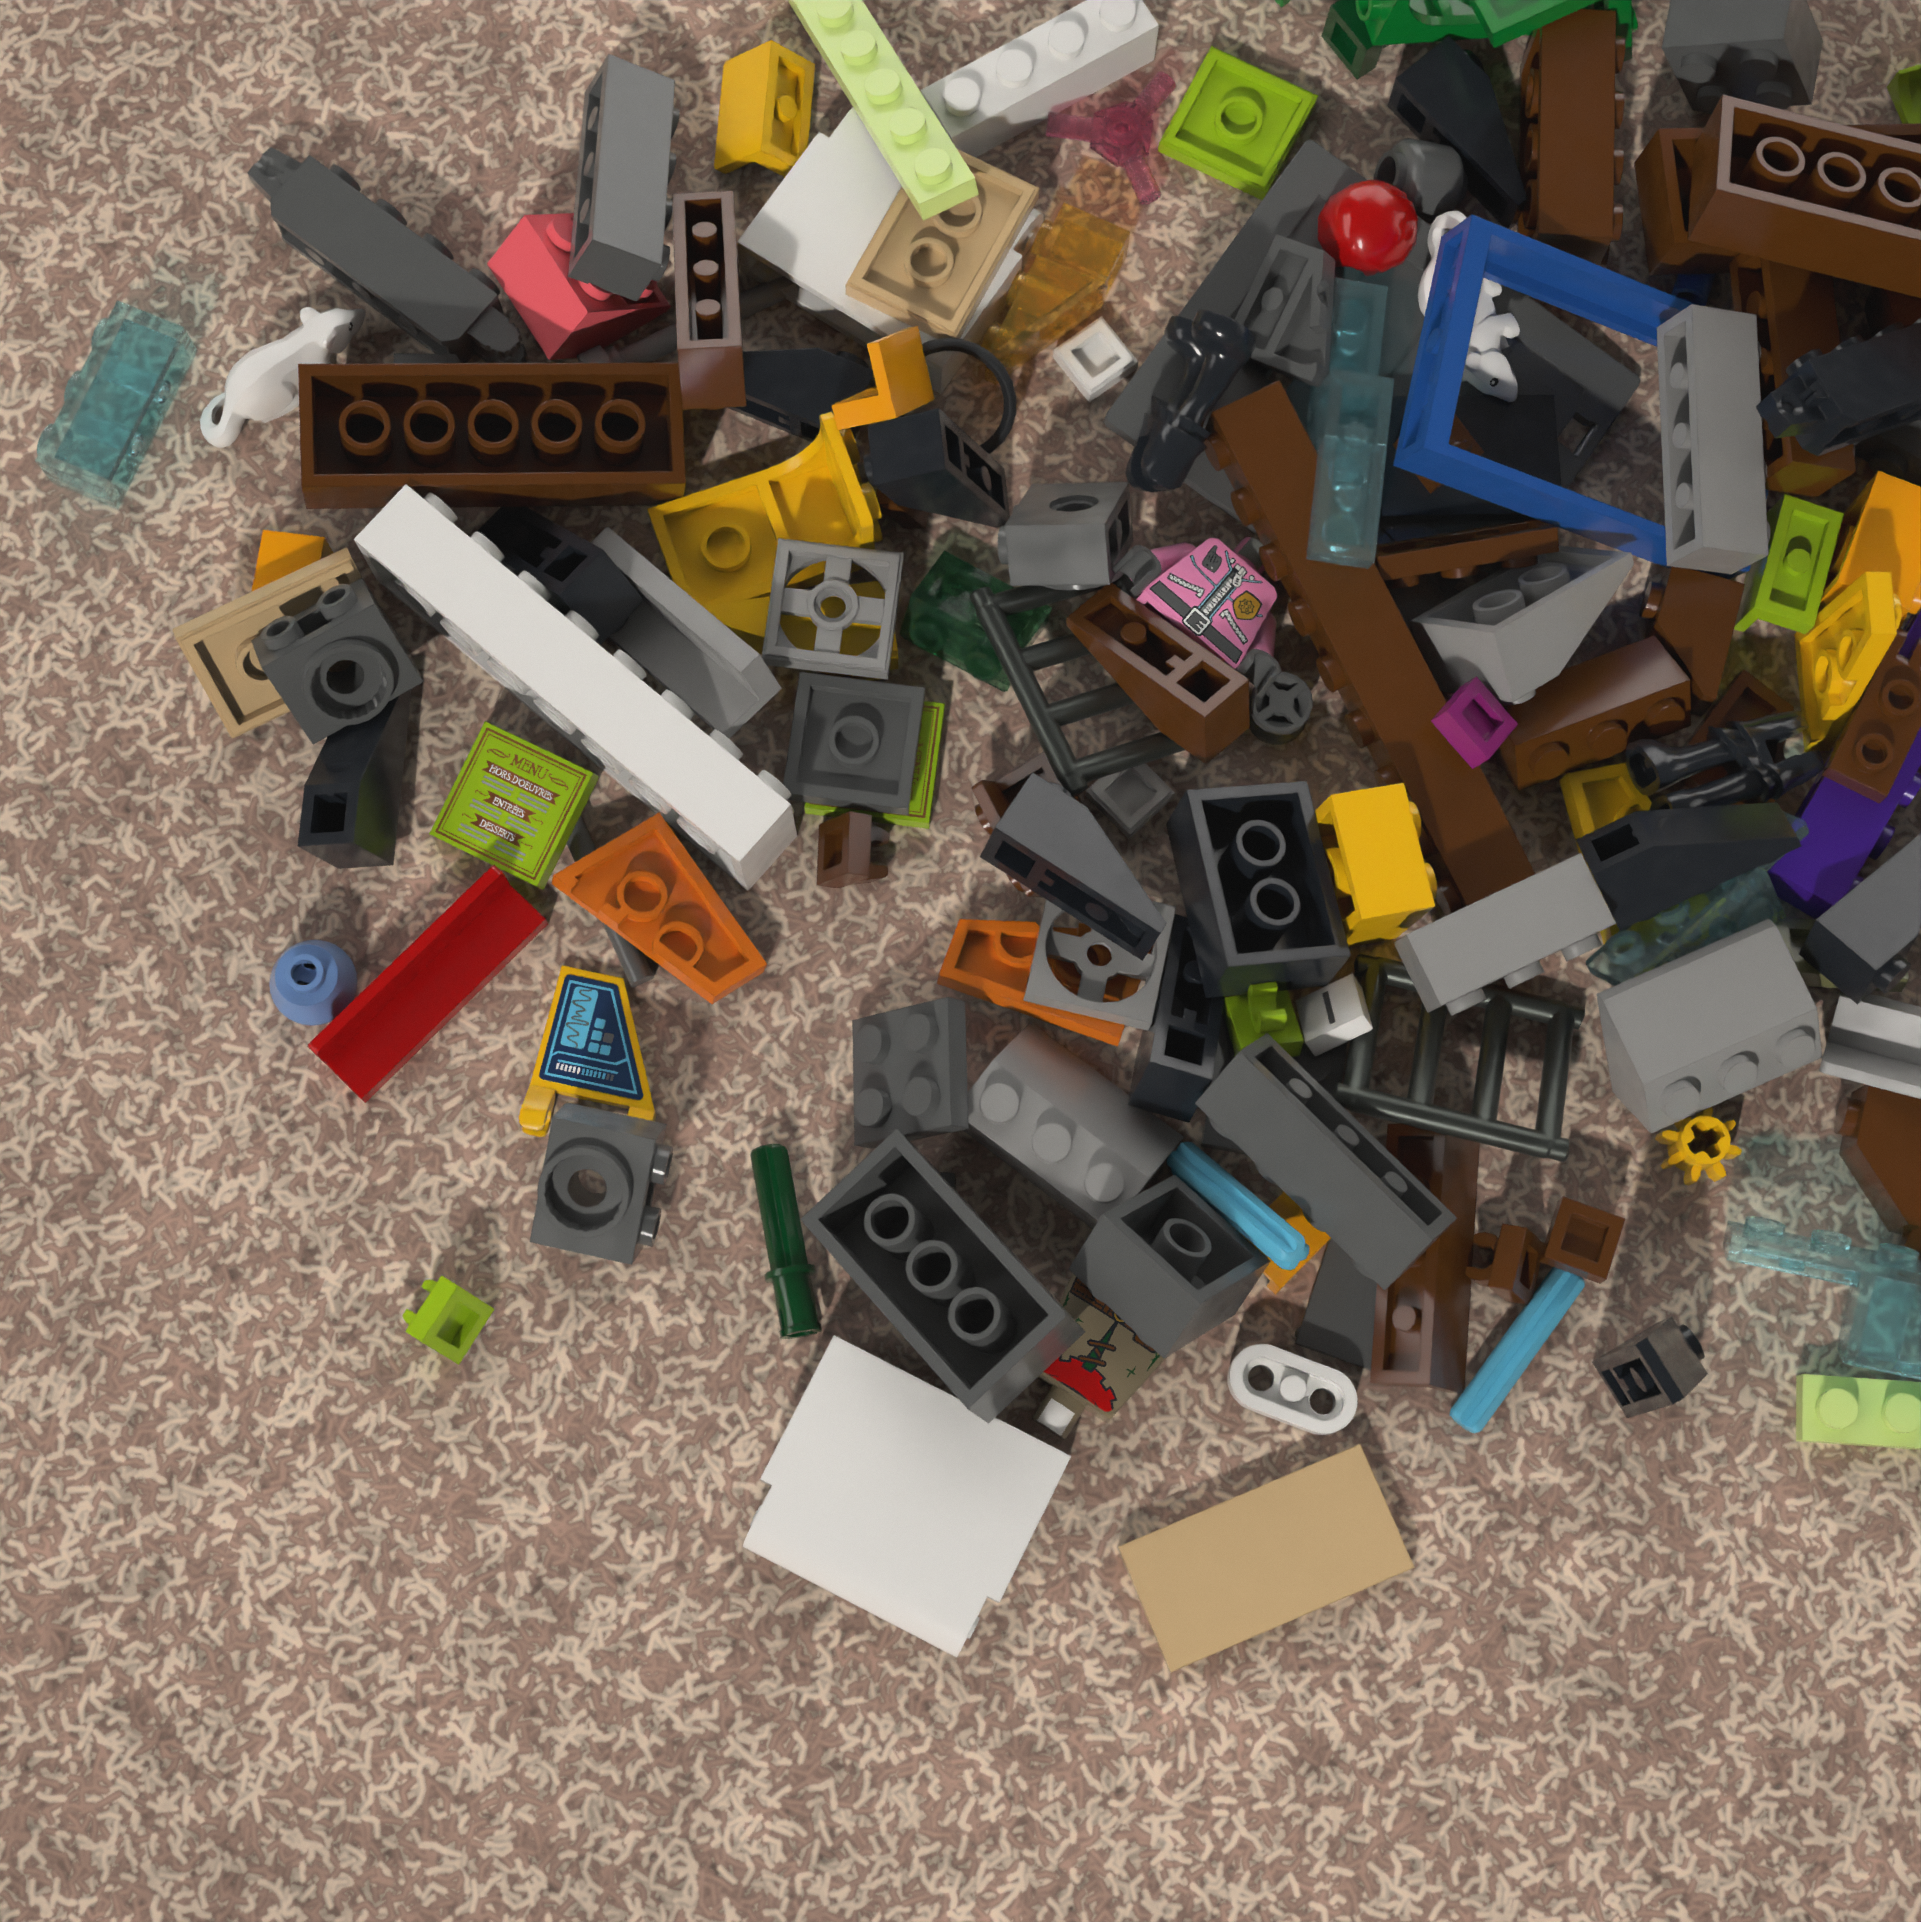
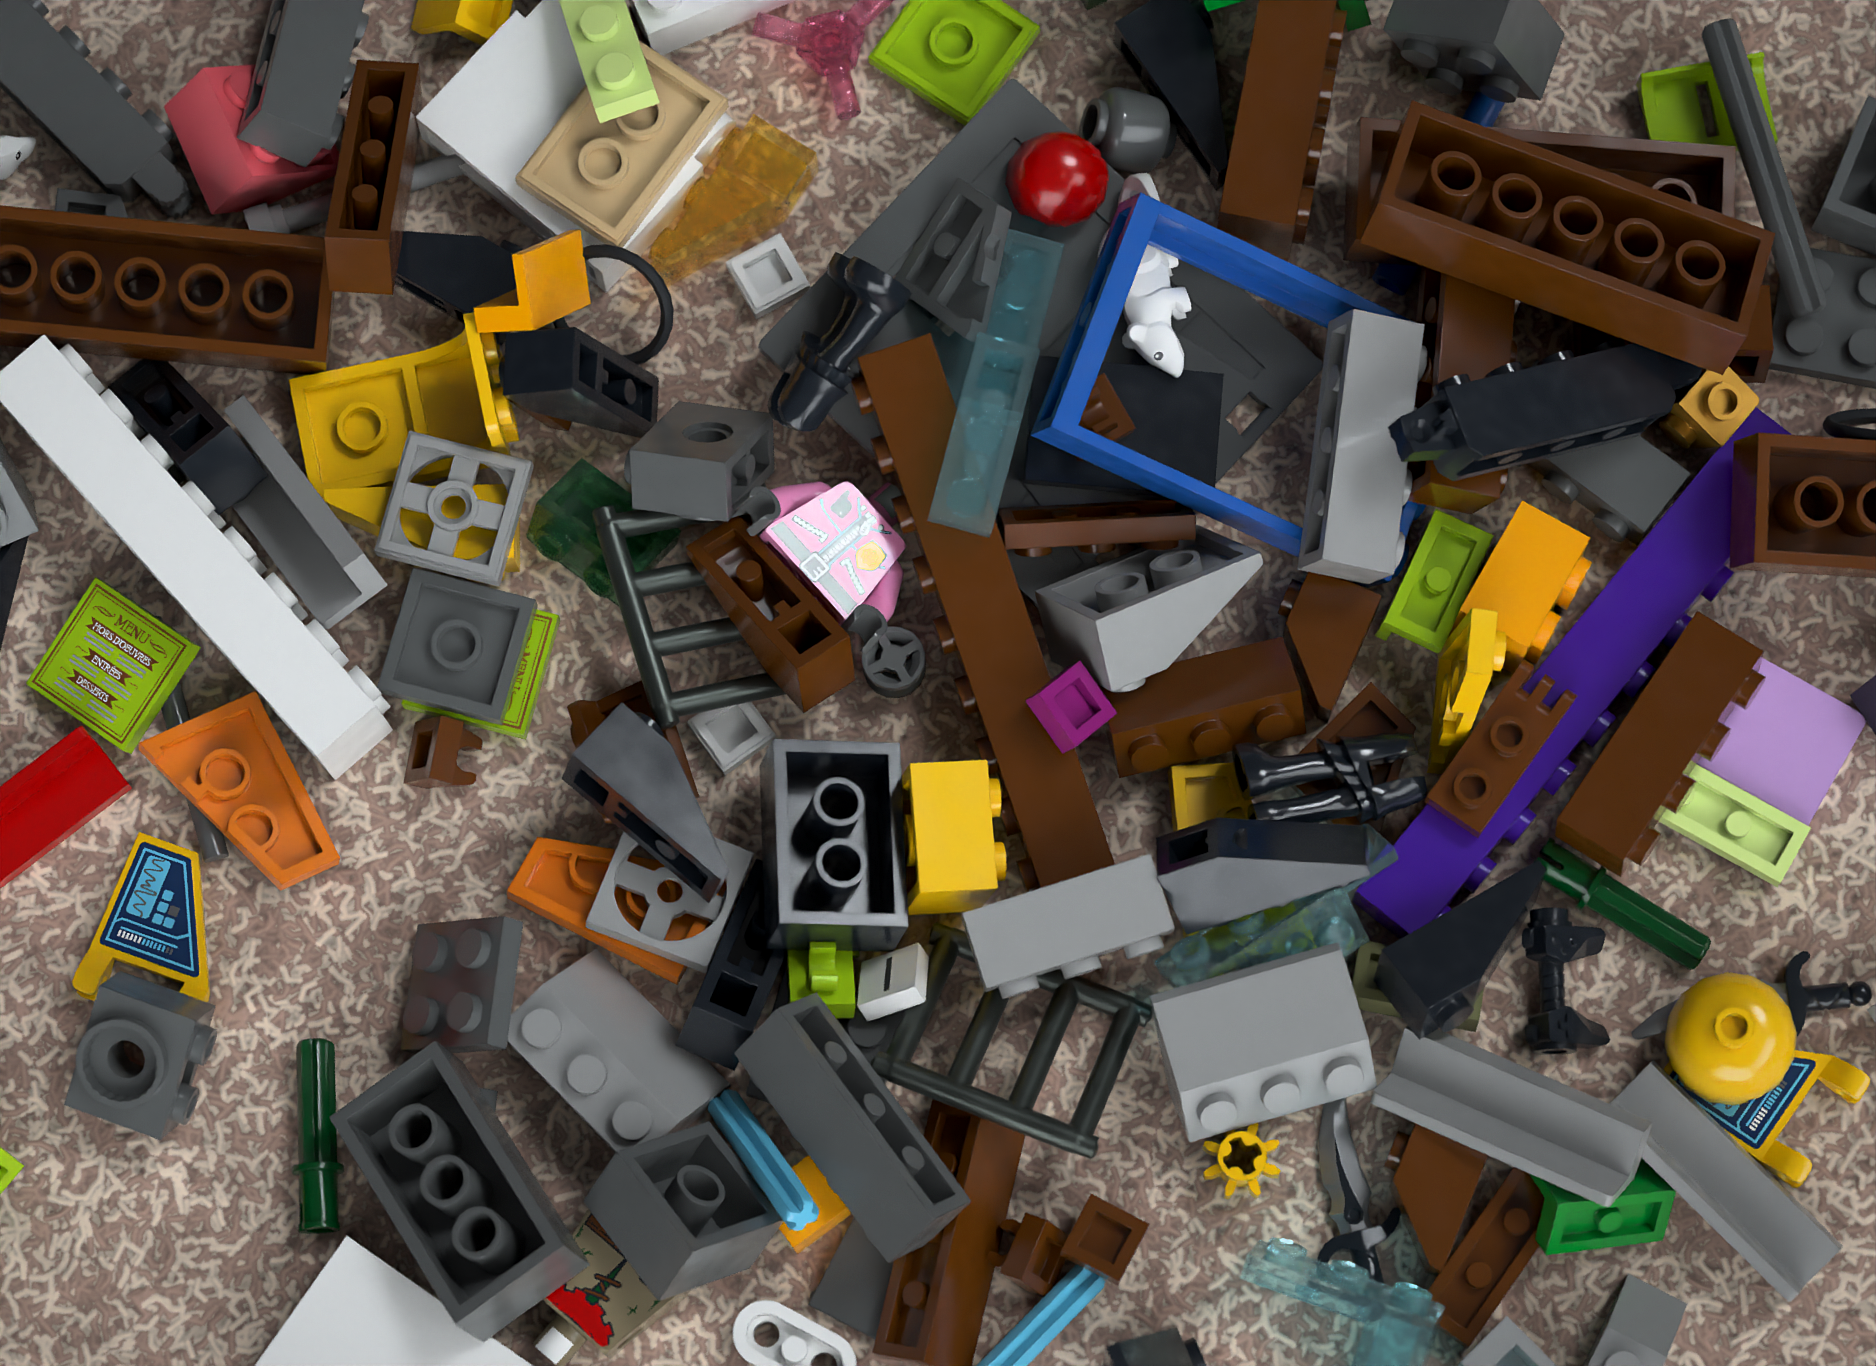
camera: 15 degrees right, 0 degrees up
(1803, 1164) = (1349, 1194): none -> piece

